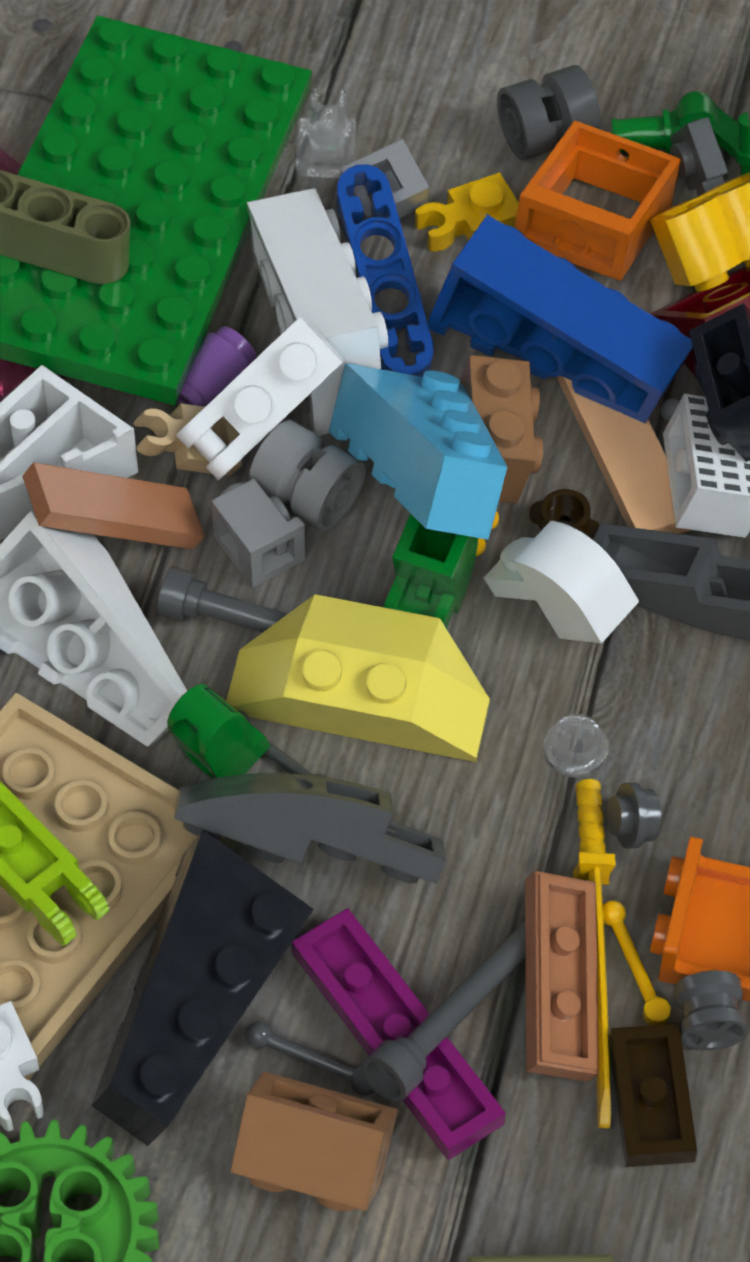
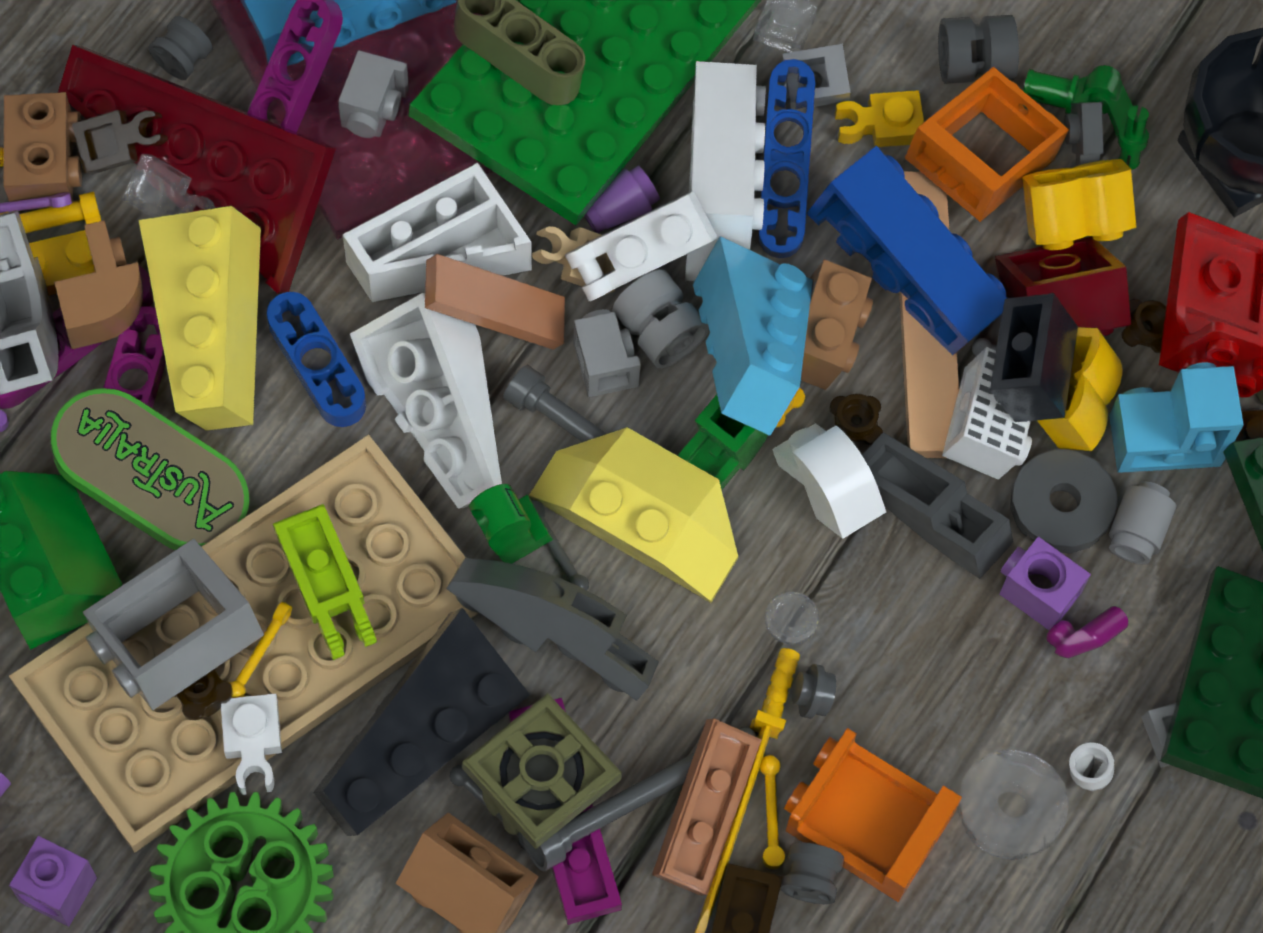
camera: 15 degrees right, 10 degrees up
(359, 986) = (544, 774): none -> olive piece

